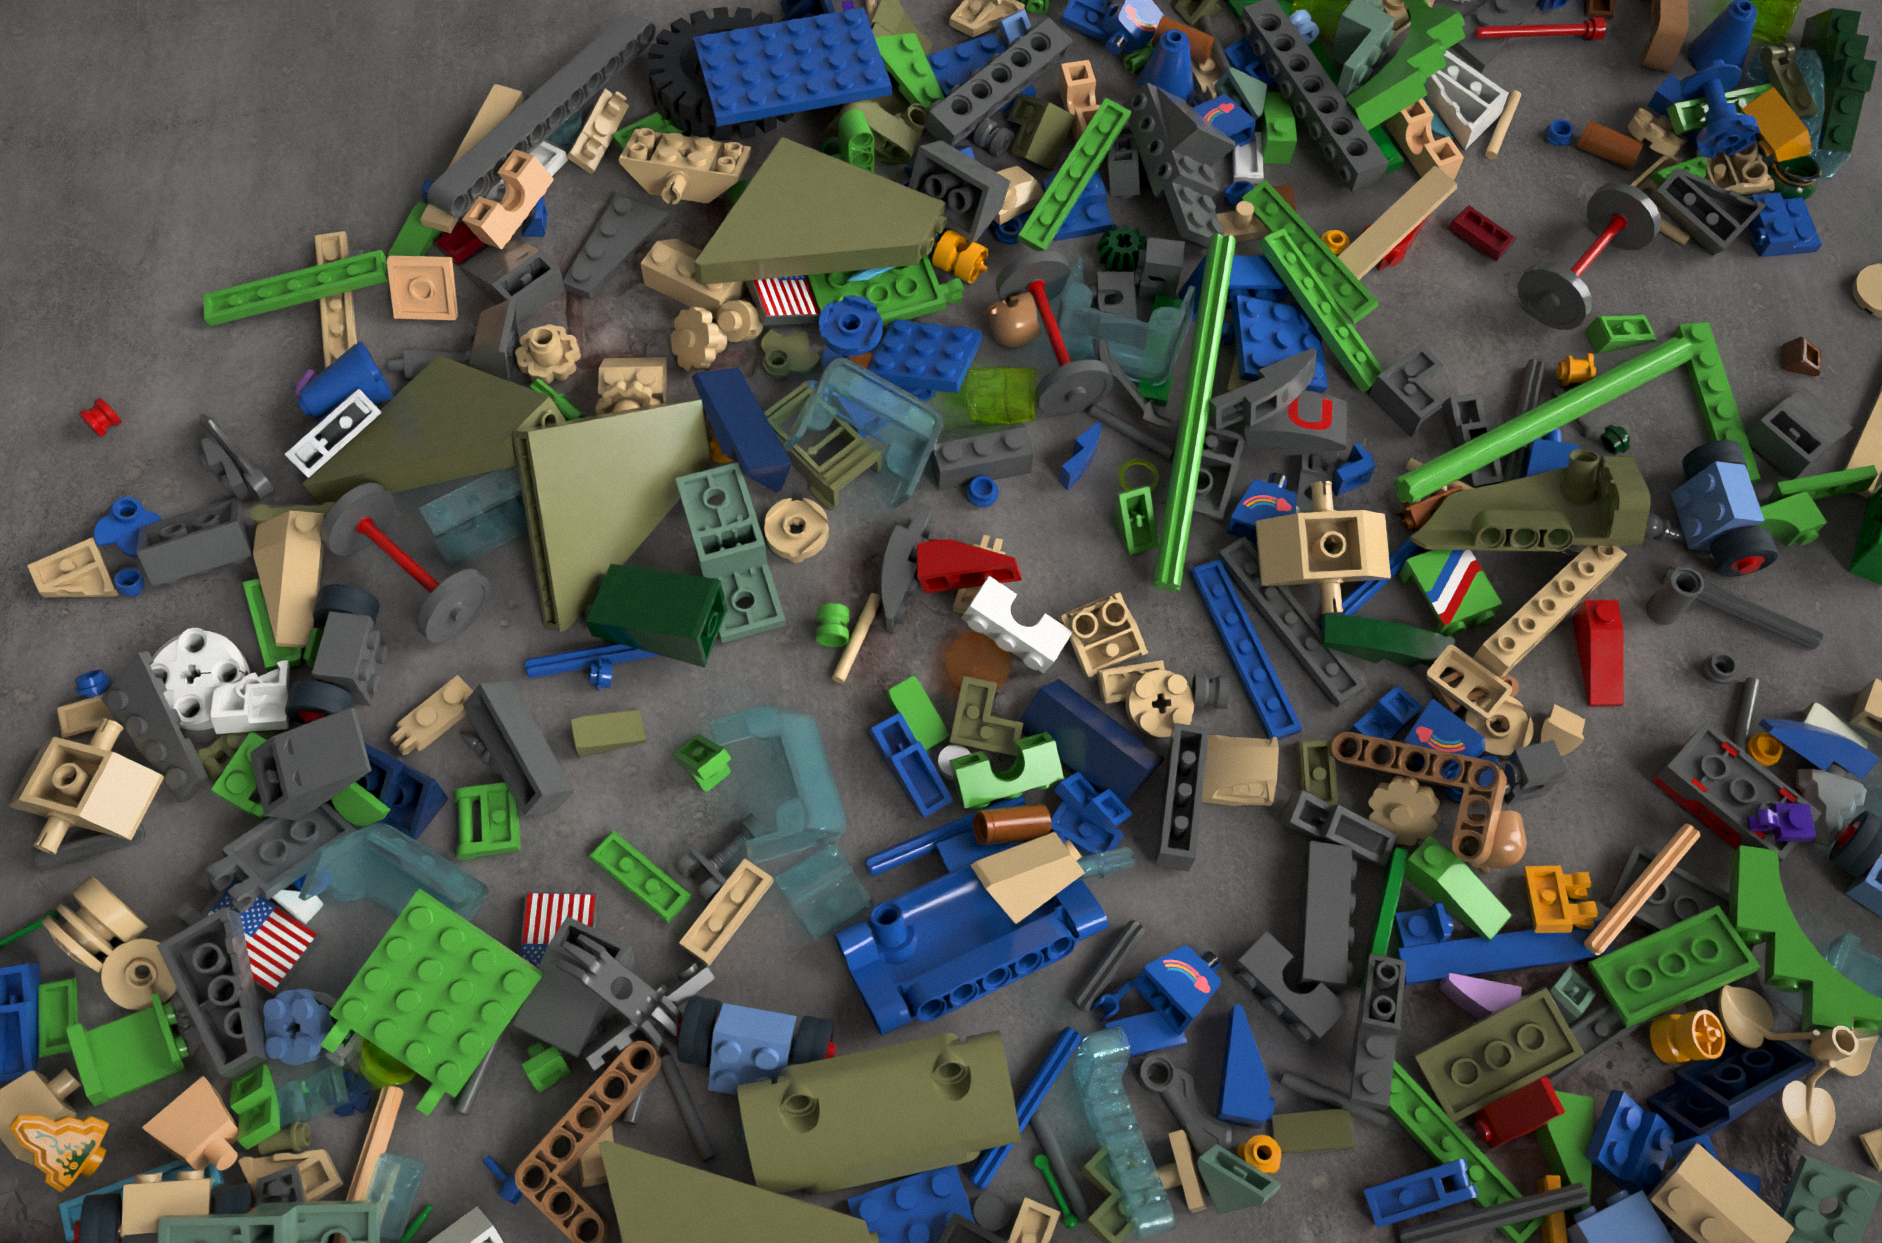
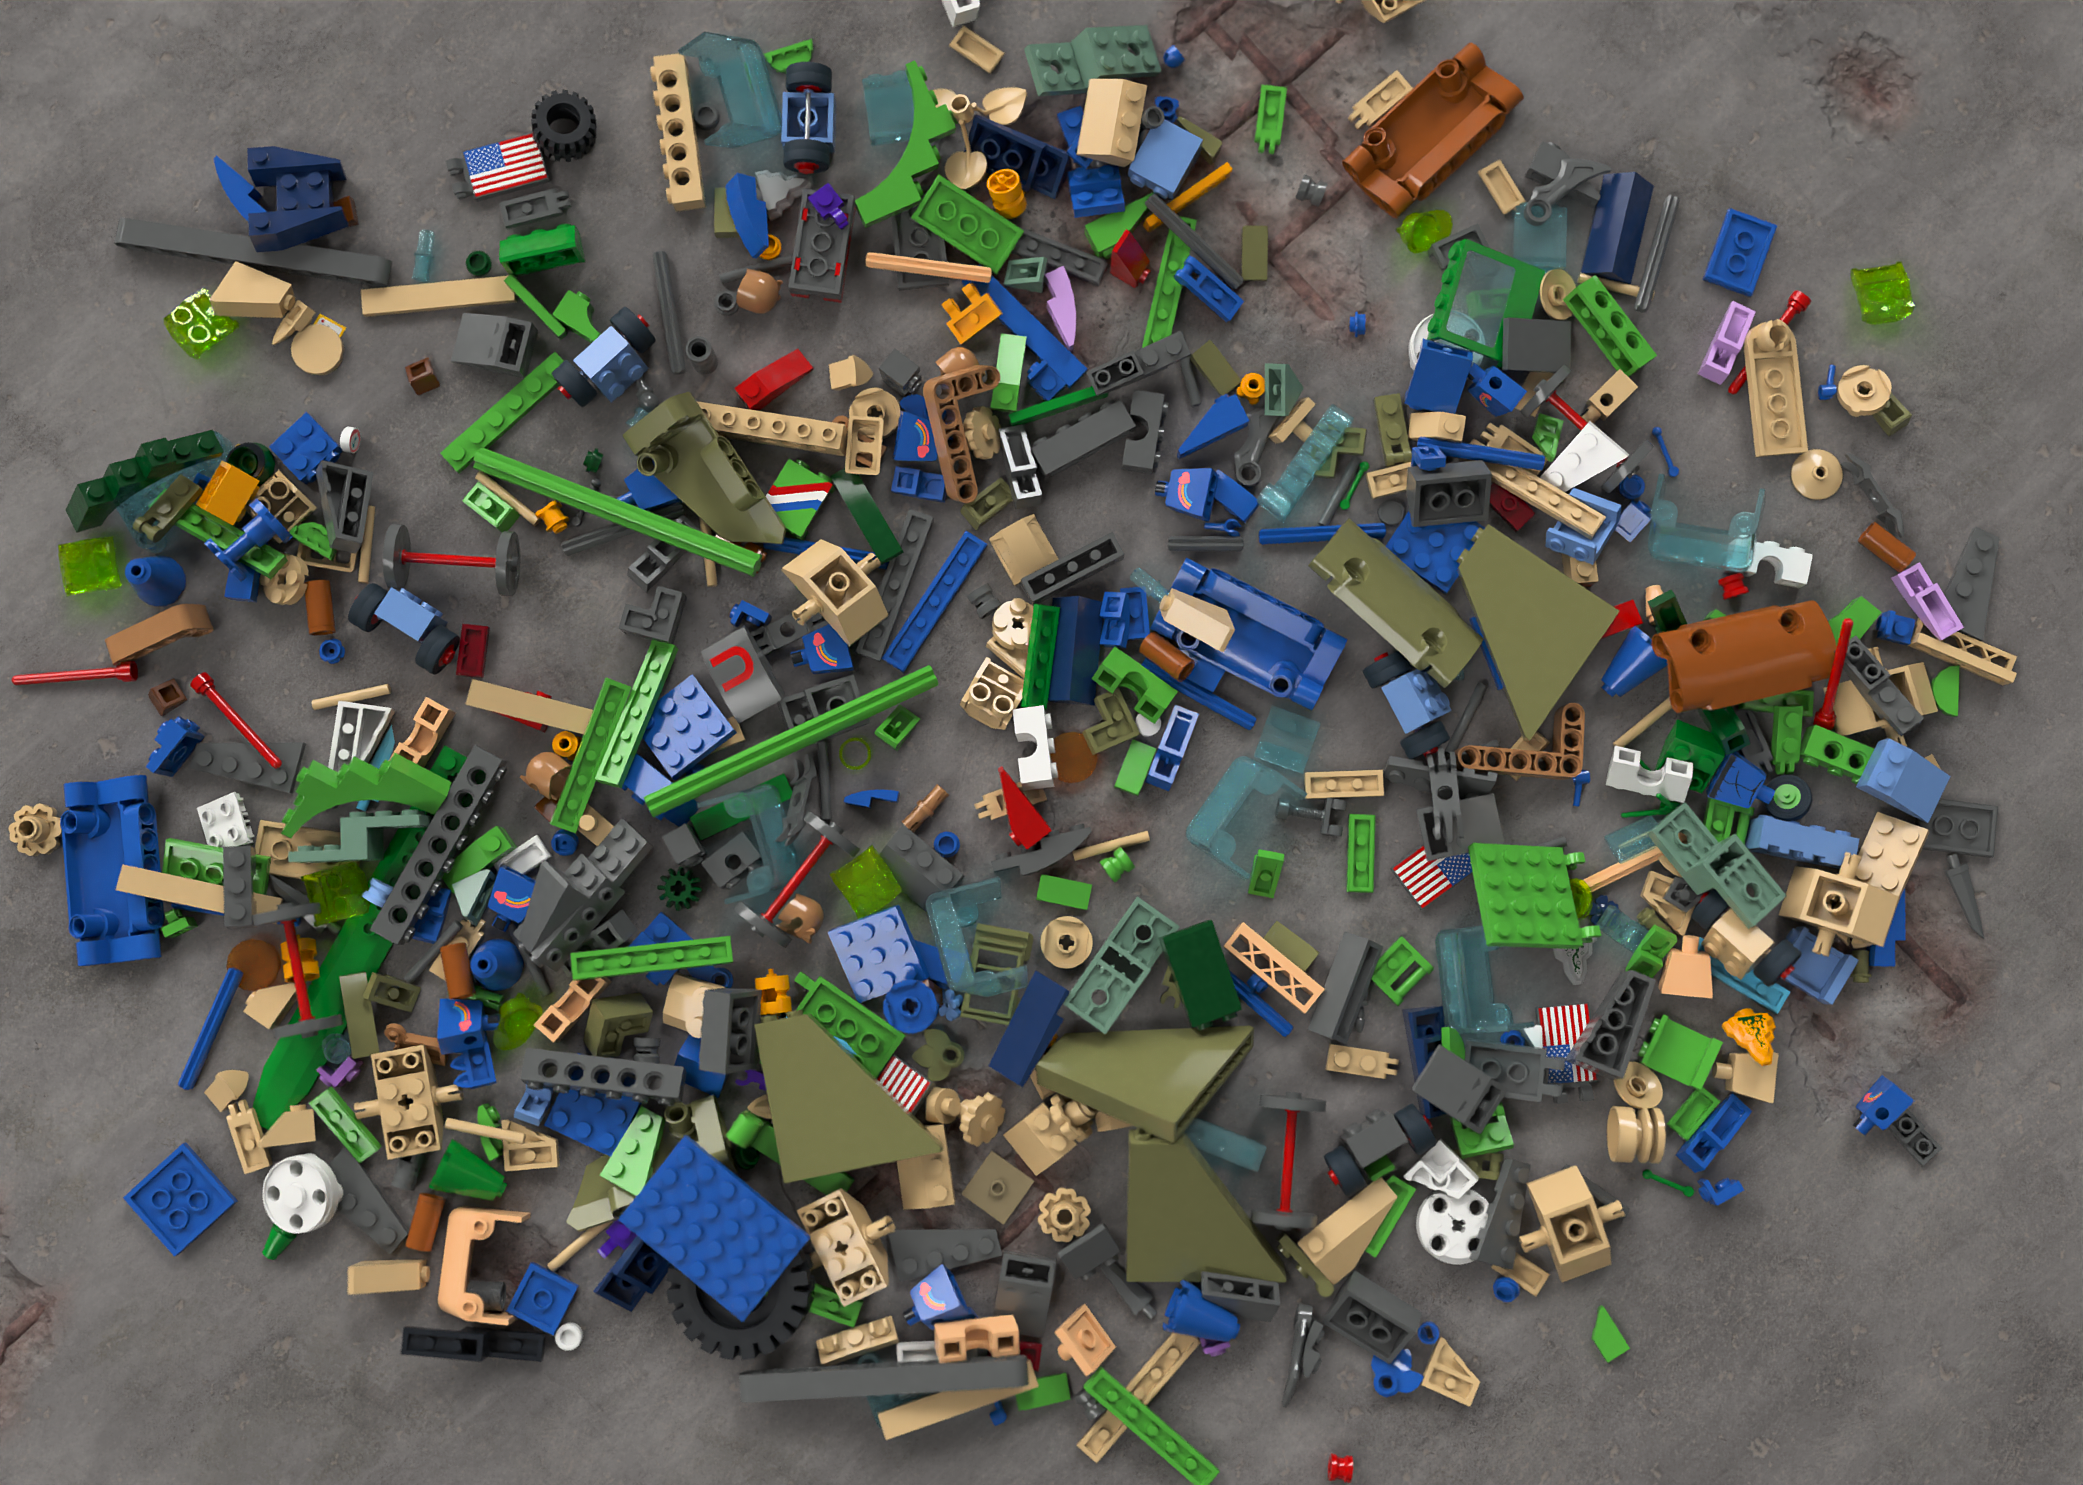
camera: 125 degrees left, 20 degrees up
(279, 1026) = (1607, 968): medium blue plate -> none
(545, 1067) = (1508, 812): bright green tile -> none
(568, 410) = (1096, 1175): bright green axle -> none
(572, 203) = (937, 1299): none -> torso
(624, 321) = (997, 1187): none -> dark tan plate
(629, 699) = (1275, 959): none -> light nougat fence
(849, 560) = (1064, 892): none -> bright green slope
(1034, 496) = (925, 808): none -> medium nougat pin
(1105, 59) = (516, 1022): none -> clear neon green piece
(1109, 698) = (1040, 656): none -> green tile
(1274, 390) = (733, 698): dark grey slope -> none
(1323, 211) = (547, 774): none -> medium nougat helmet
(1498, 1054) = (1099, 291): olive plate -> none
(1547, 194) = (416, 620): none -> brick
(1624, 350) = (508, 498): none -> tan bar
(1718, 697) = (758, 292): none -> medium nougat helmet
(1769, 260) = (350, 439): none -> white tile

